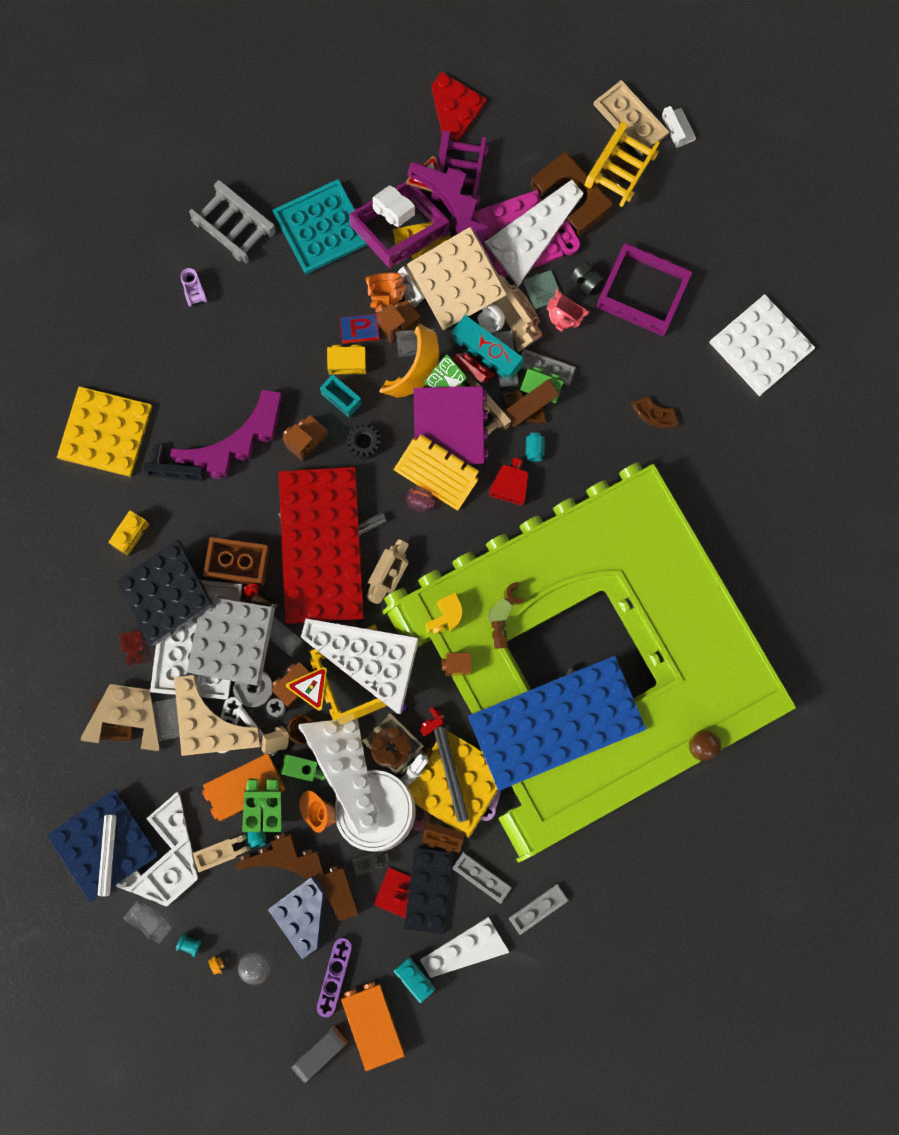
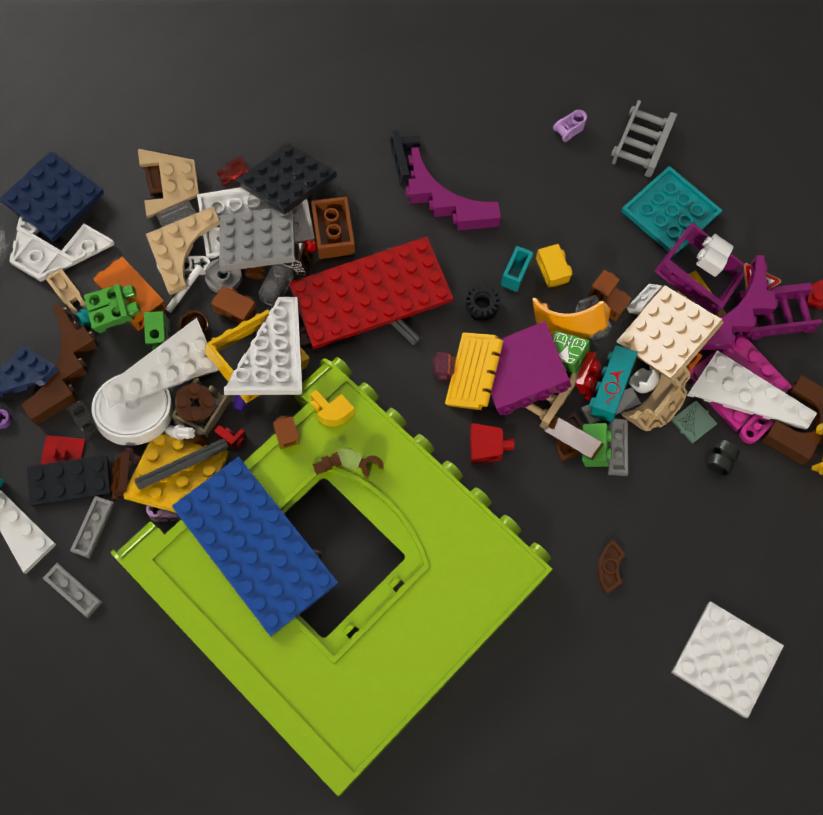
camera: 75 degrees right, 10 degrees down
(104, 431) = (417, 98): yellow plate -> none
(107, 855) = (39, 197): white axle -> none
(128, 533) = (332, 138): yellow brick -> none
(274, 702) = (207, 296): light grey bush -> none
(275, 741) = (177, 304): tan tile -> none
(304, 437) = (465, 251): dark orange brick -> none
(310, 687) = (231, 314): piece -> none
(316, 812) = (121, 359): orange piece -> none
(359, 328) = (586, 266): blue piece -> none
(385, 288) = (634, 277): orange helmet -> none
(387, 572) = (364, 356): tan hinge -> none
(535, 447) = (532, 456): teal brick -> none
(565, 312) = (680, 445): coral helmet -> none
(634, 315) = (703, 518): magenta window -> none
(705, 745) = (270, 704): reddish brown hair -> none

